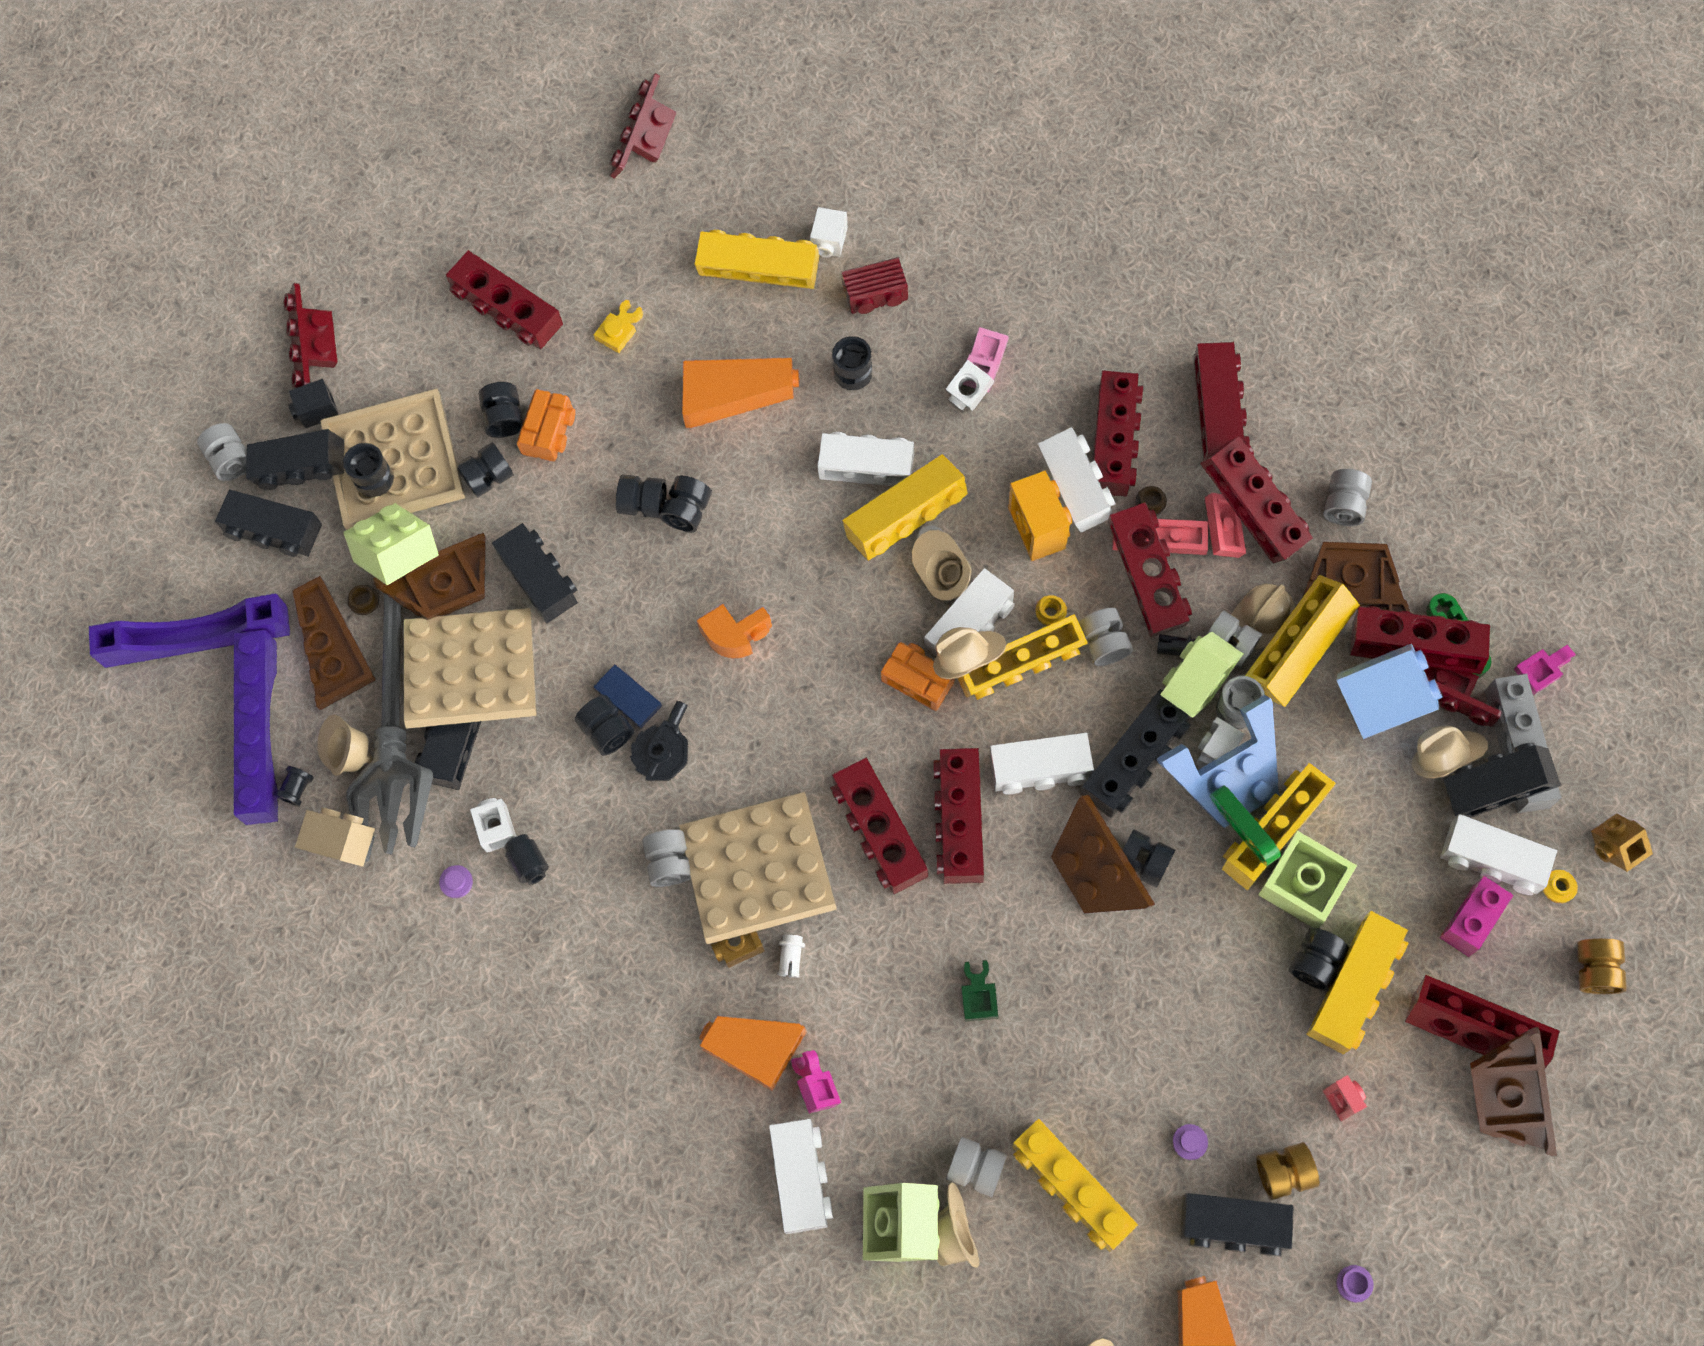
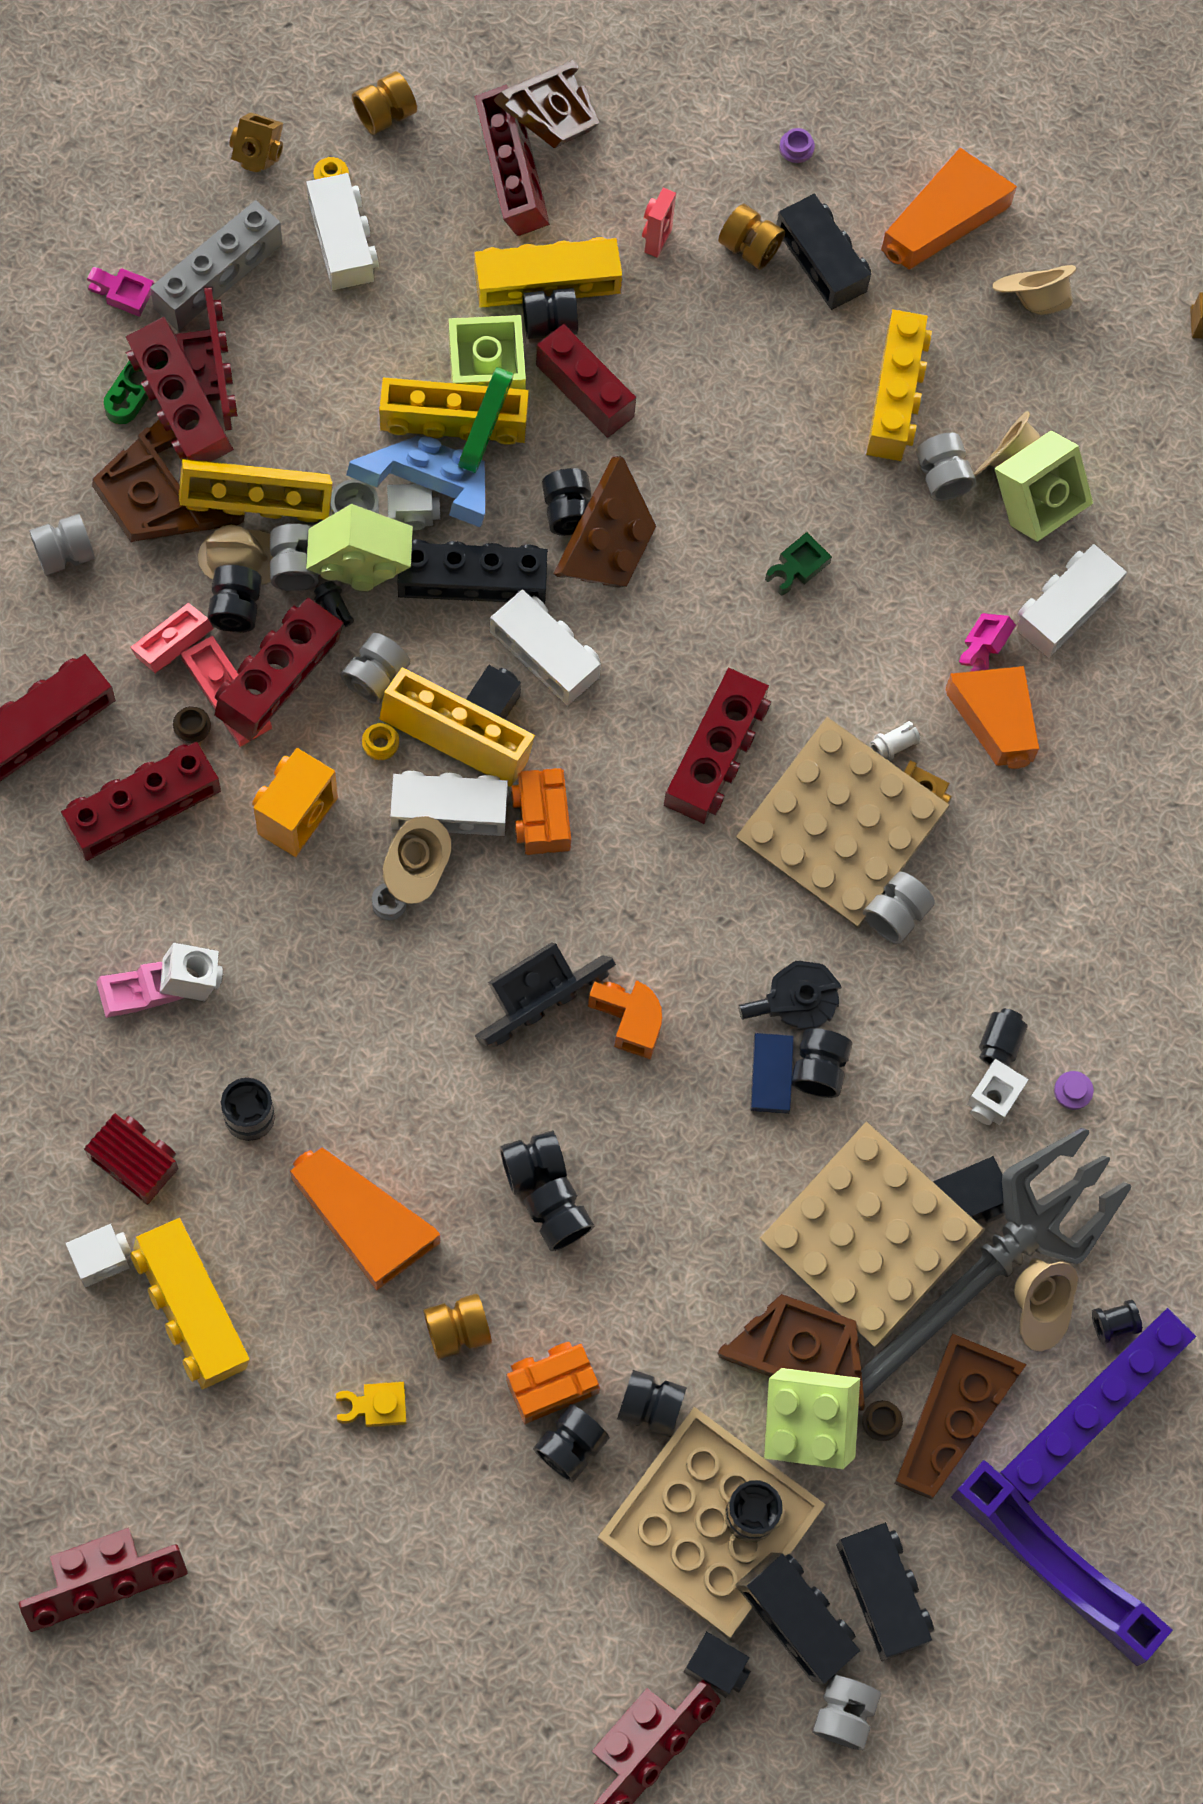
camera: 140 degrees left, 0 degrees up
(335, 837) = (1133, 1224): tan brick -> none
(474, 272) = (428, 1620): dark red brick -> none
(536, 572) = (719, 1259): black brick -> none
(622, 391) = (457, 1326): none -> pearl gold wheel
(797, 588) = (535, 986): none -> black bracket
(865, 459) = (347, 1021): white brick -> none
(905, 507) = (376, 941): yellow brick -> none
(960, 816) = (651, 682): dark red brick -> none
(965, 650) = (496, 761): tan piece -> none
(1028, 701) = (496, 691): none -> black brick
(1077, 479) = (231, 784): white brick -> none
(1190, 1142) = (785, 325): medium lavender plate -> none
(1236, 585) = (234, 598): none -> black wheel
(1241, 943) = (585, 381): none -> dark red brick
(1257, 500) = (130, 614): dark red brick -> none
(1389, 690) = (254, 386): light blue brick -> none
(1445, 750) = (271, 318): tan piece -> none
(1476, 916) = (413, 216): dark pink brick -> none
(1501, 780) = (277, 250): black brick -> none

